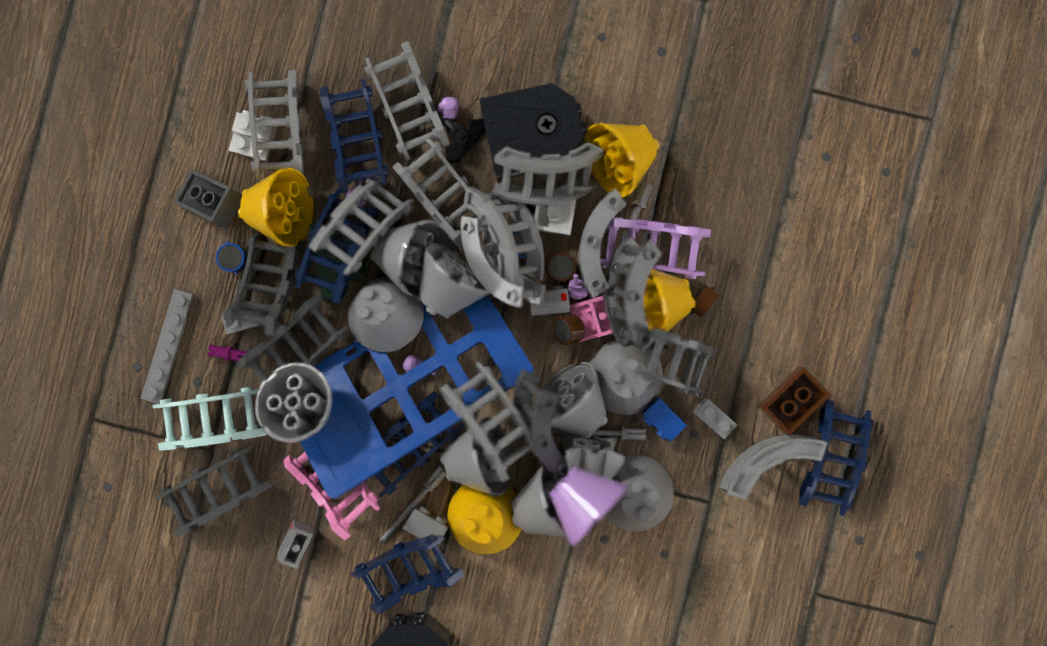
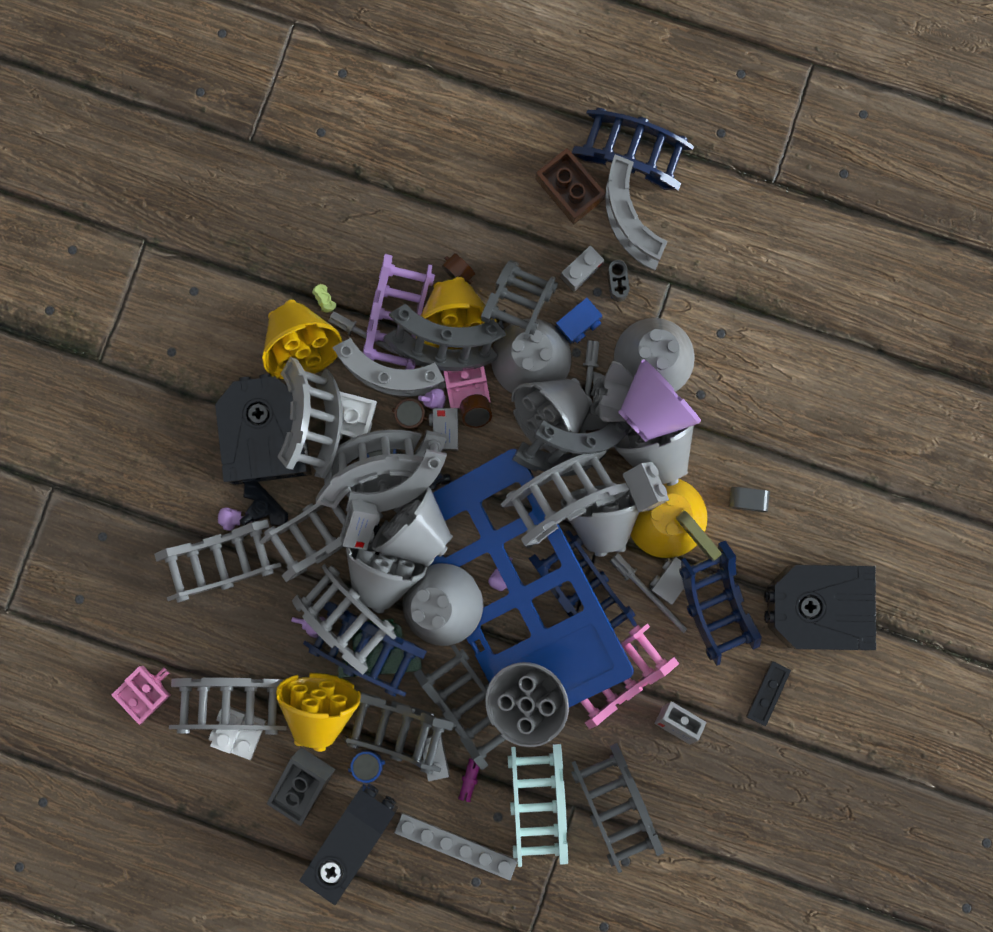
camera: 85 degrees left, 5 degrees down
(154, 249) = (349, 843): none -> black piece
(280, 44) = (142, 693): none -> bright pink plate
(329, 622) = (768, 693): none -> black plate
(339, 142) = (254, 638): dark blue fence -> none
(448, 230) = (359, 525): none -> light grey brick
(465, 550) = (698, 535): none -> olive beam
(506, 497) = (646, 486): none -> light grey brick
(508, 592) = (749, 499): none -> dark grey beam
(664, 175) = (323, 298): none -> yellowish green piece
(702, 459) = (614, 279): none -> dark grey beam

